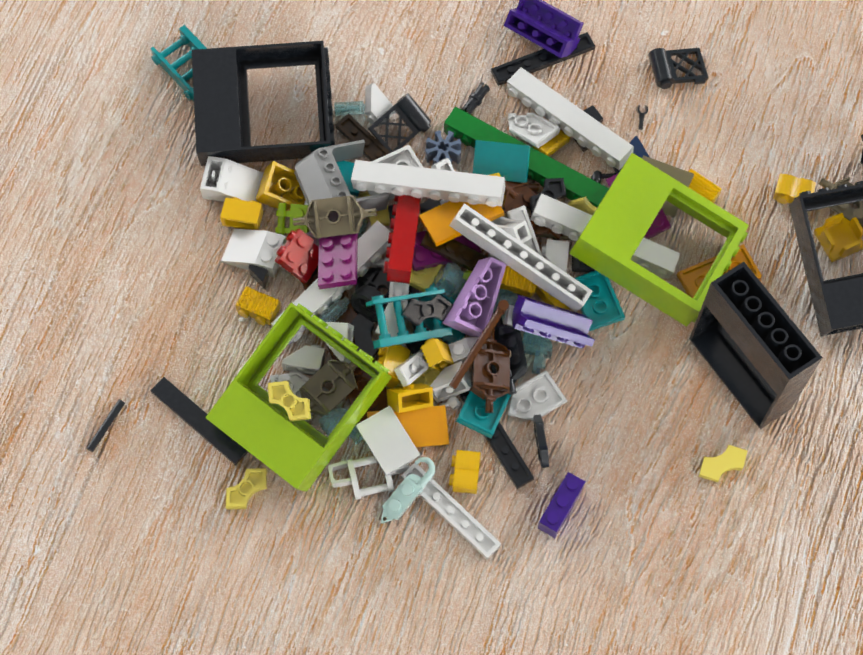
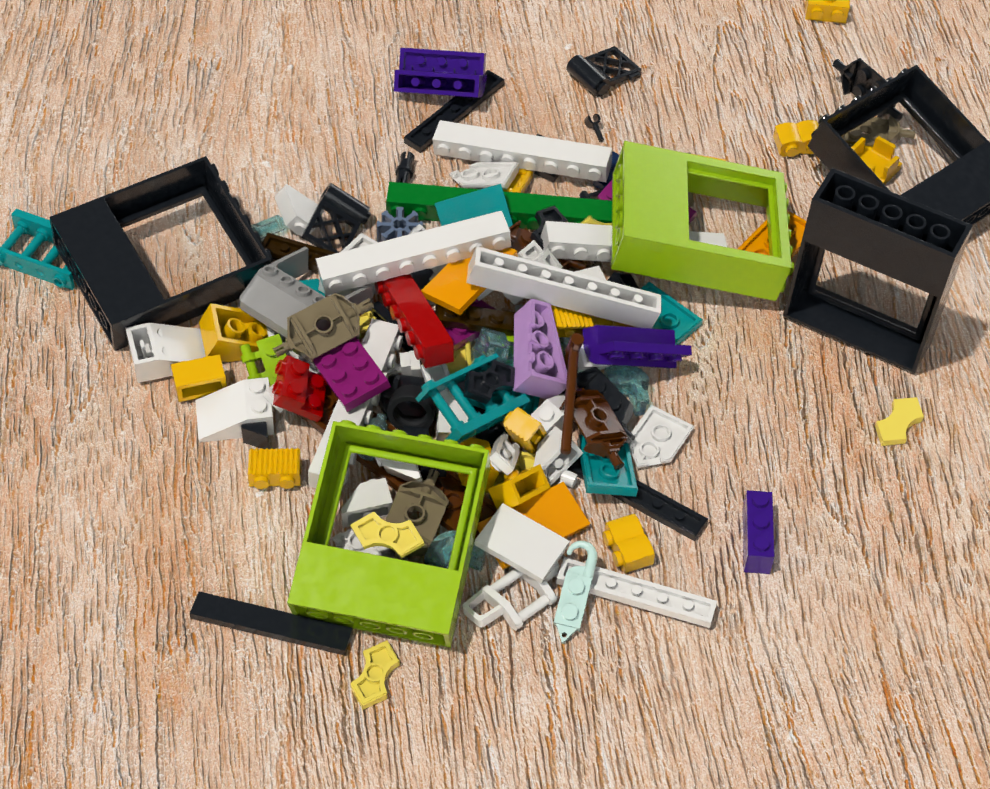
camera: 30 degrees left, 15 degrees down
(105, 426) = (151, 679): black bar -> none
(541, 441) = (698, 480): black tile -> none

